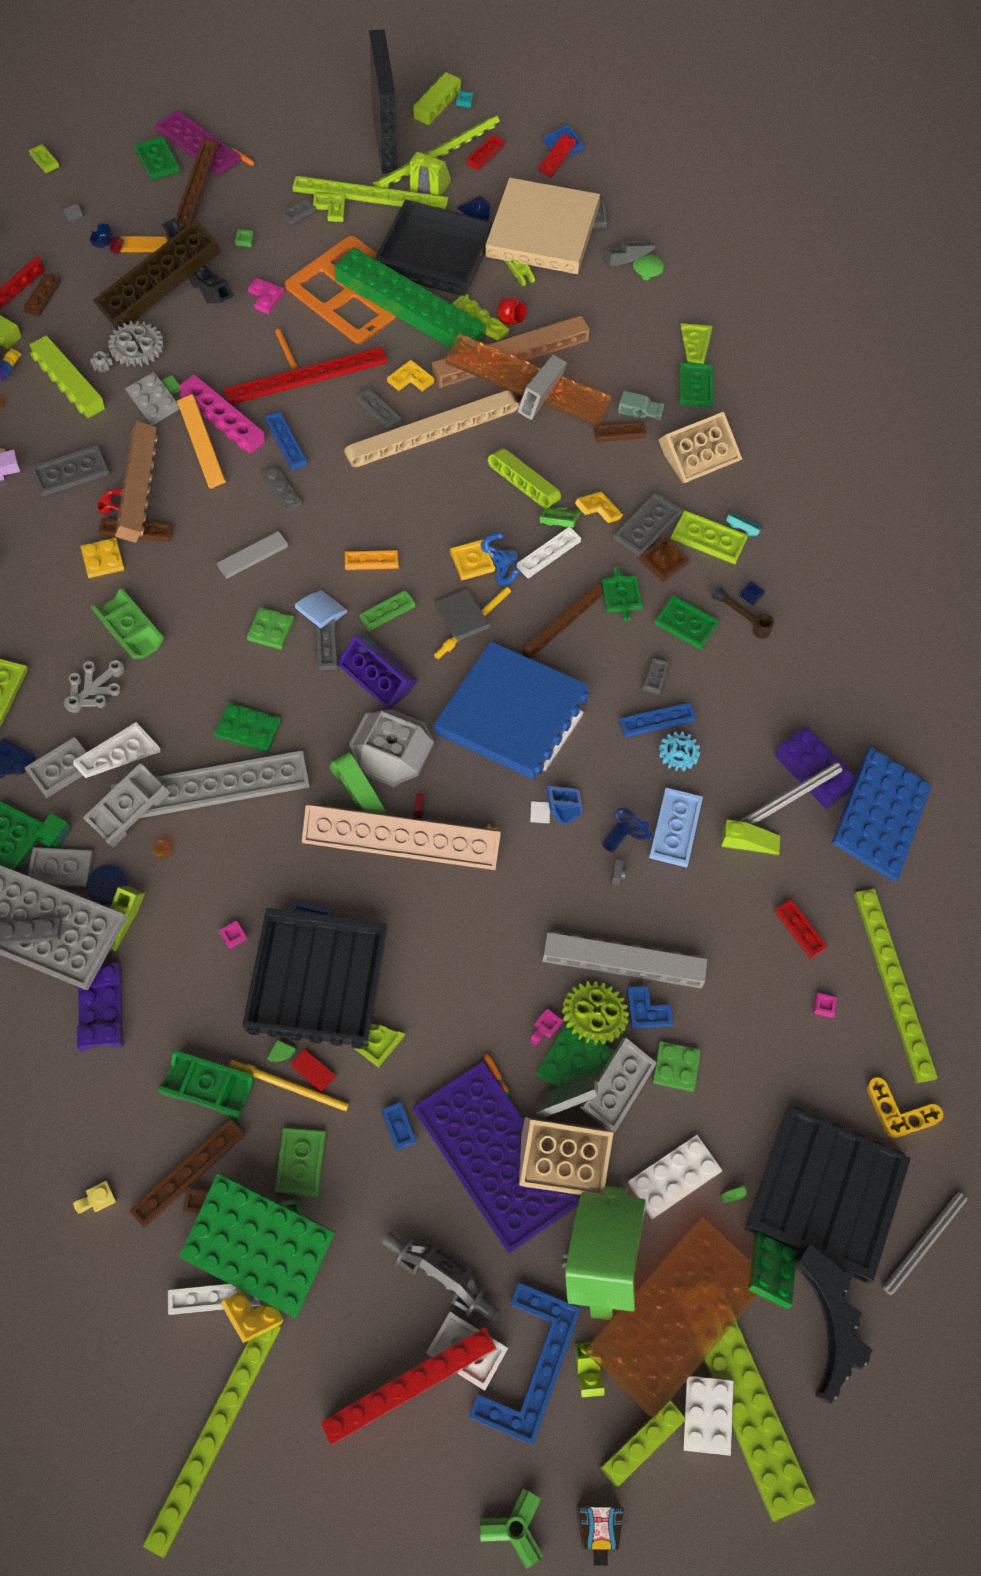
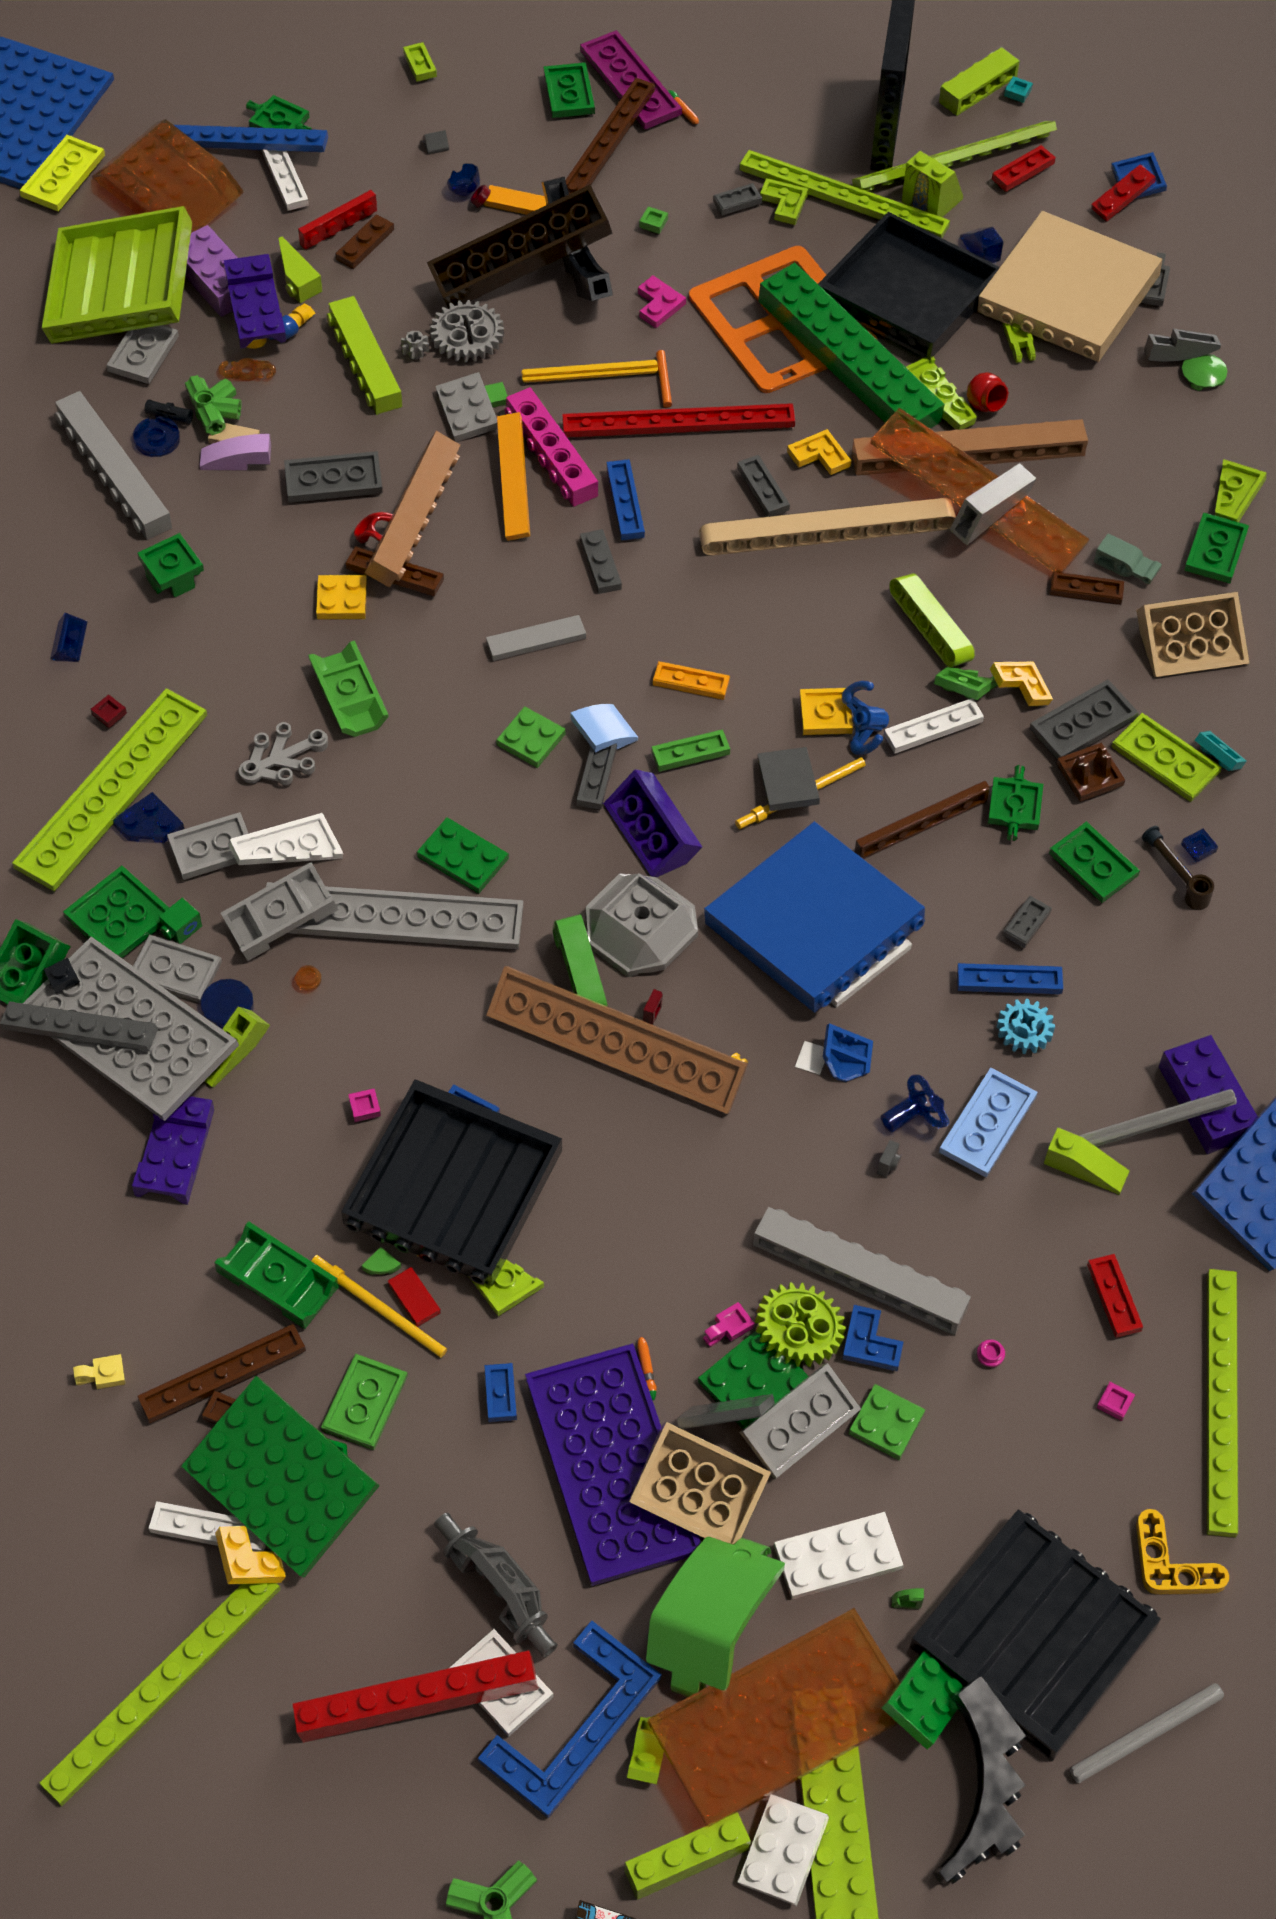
camera: 20 degrees right, 5 degrees down
(231, 354) = (589, 371): none -> yellow axle
(731, 995) = (990, 1353): none -> dark pink plate

